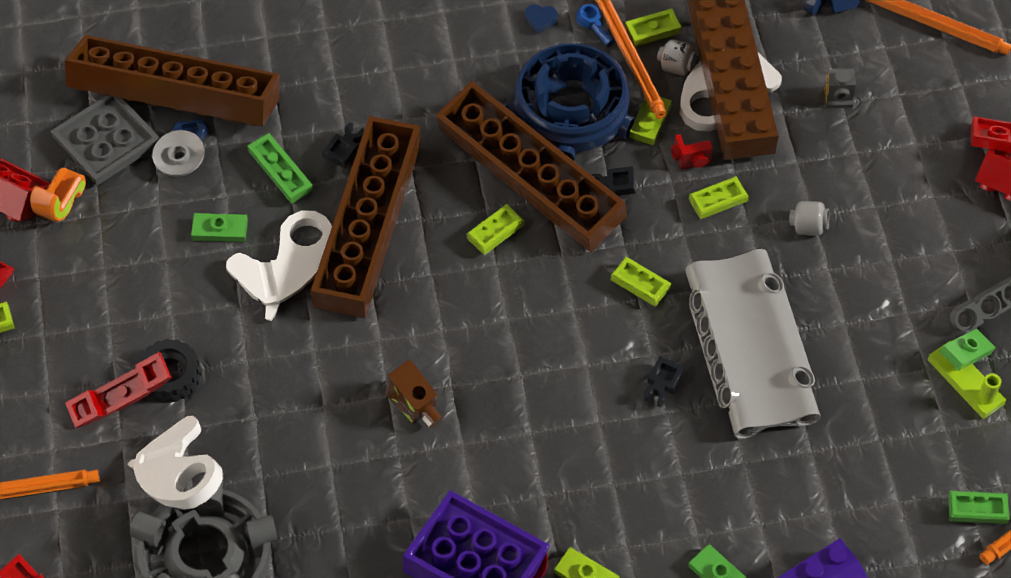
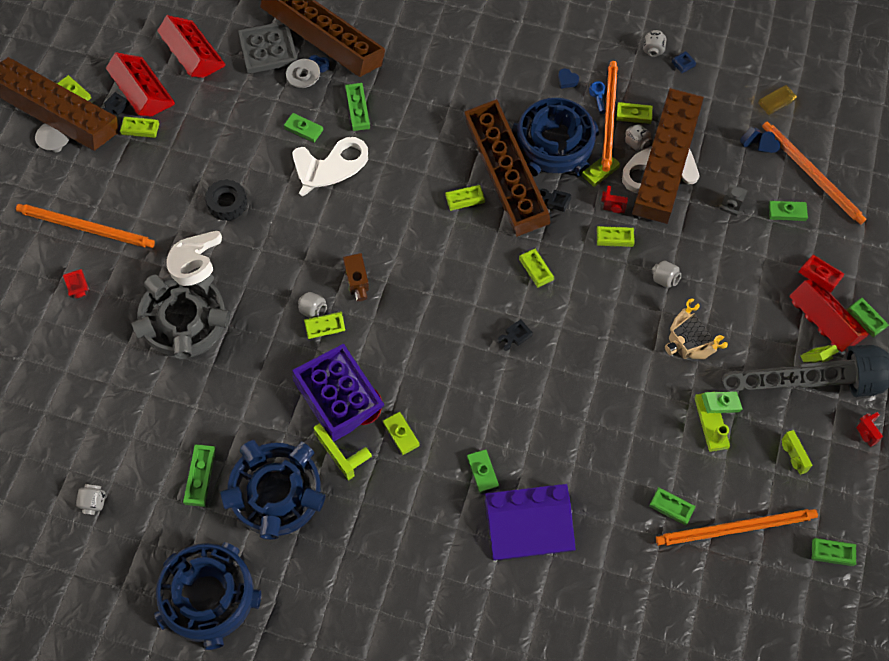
camera: 25 degrees right, 5 degrees up
(59, 196) = (221, 71): orange animal -> none
(120, 392) = (188, 201): red slope -> none
(343, 148) = (401, 110): black plate -> none
(366, 217) = (390, 156): reddish brown brick -> none
(373, 460) = (312, 305): none -> light grey head
(404, 479) = (324, 325): none -> lime plate
(751, 343) = (583, 337): light grey panel -> none
(884, 284) = (691, 337): none -> torso
(912, 74) = (788, 210): none -> bright green plate

